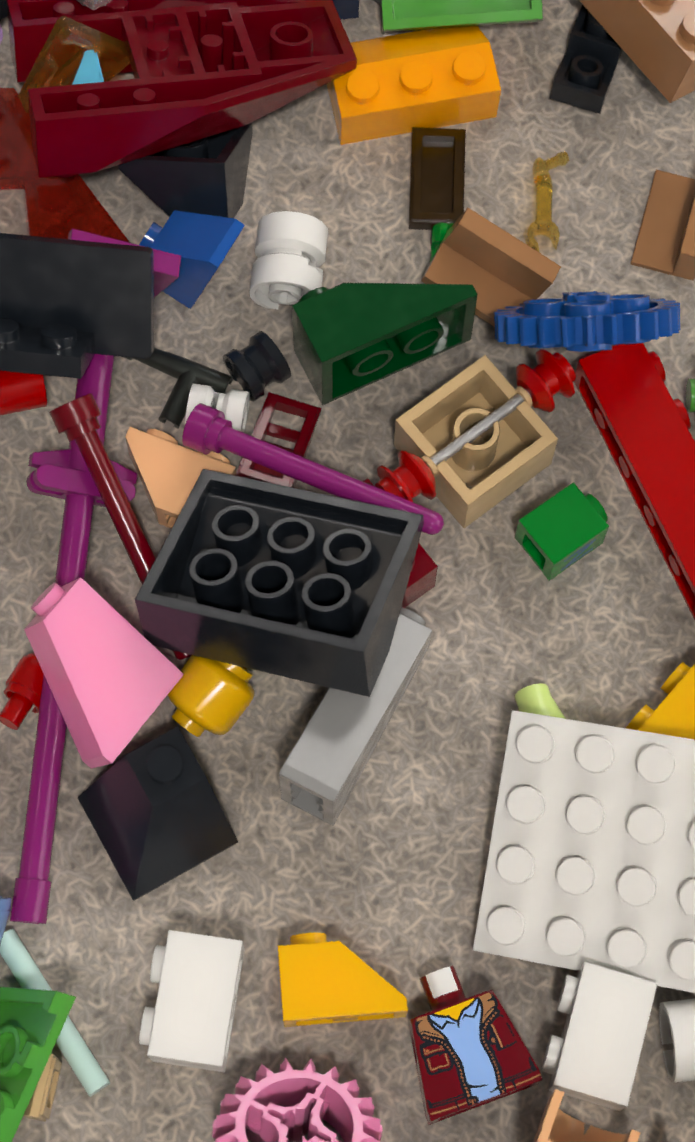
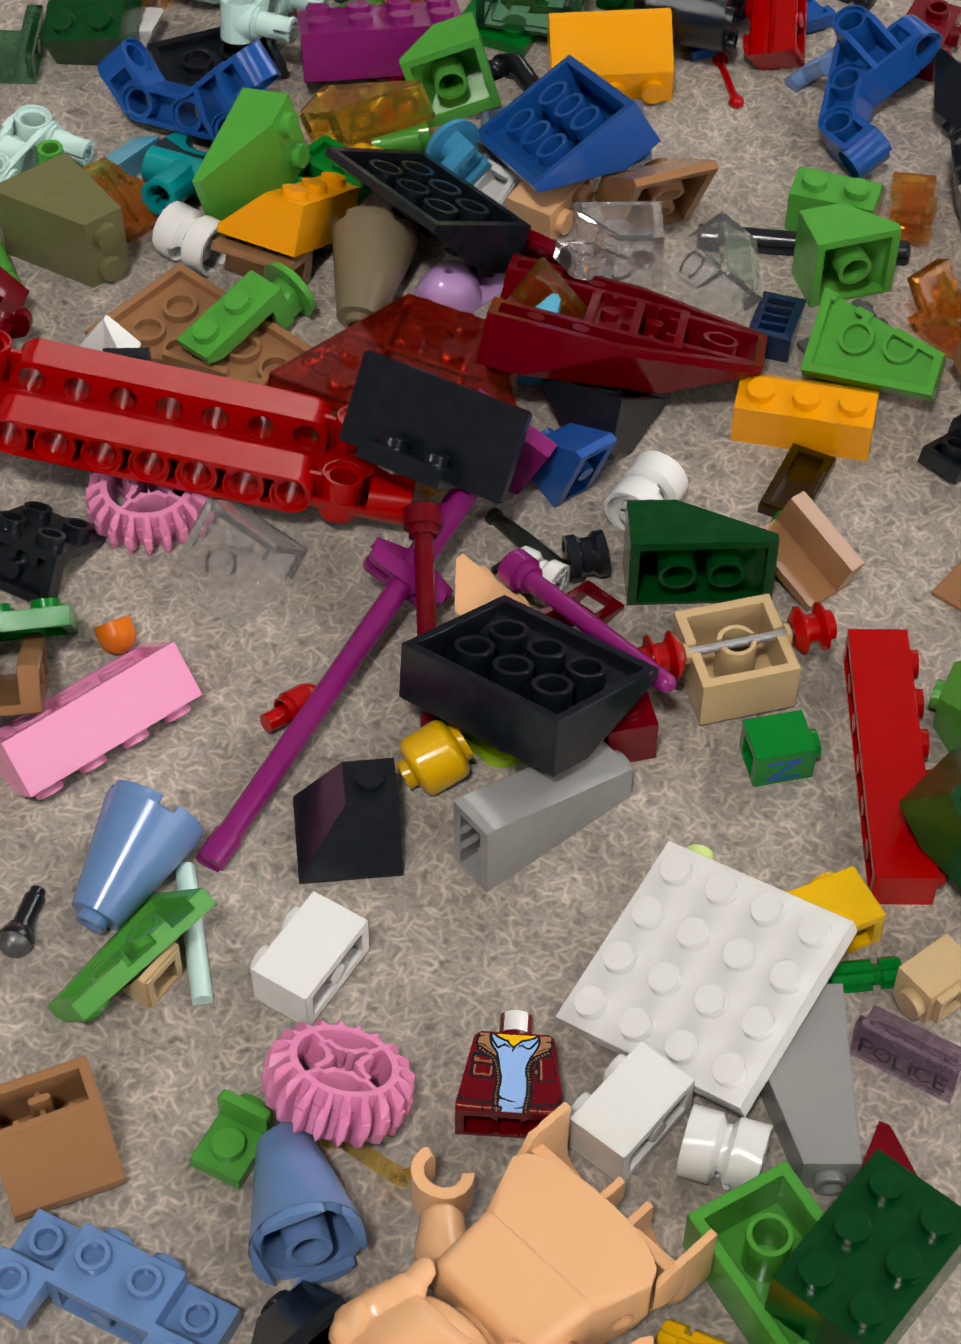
camera: 25 degrees right, 20 degrees down
(97, 669) = (352, 697): bright pink slope -> none
(332, 985) = (424, 994): yellow slope -> none
(544, 197) = (868, 540): clear yellow piece -> none
(587, 321) = (865, 596): blue gear -> none

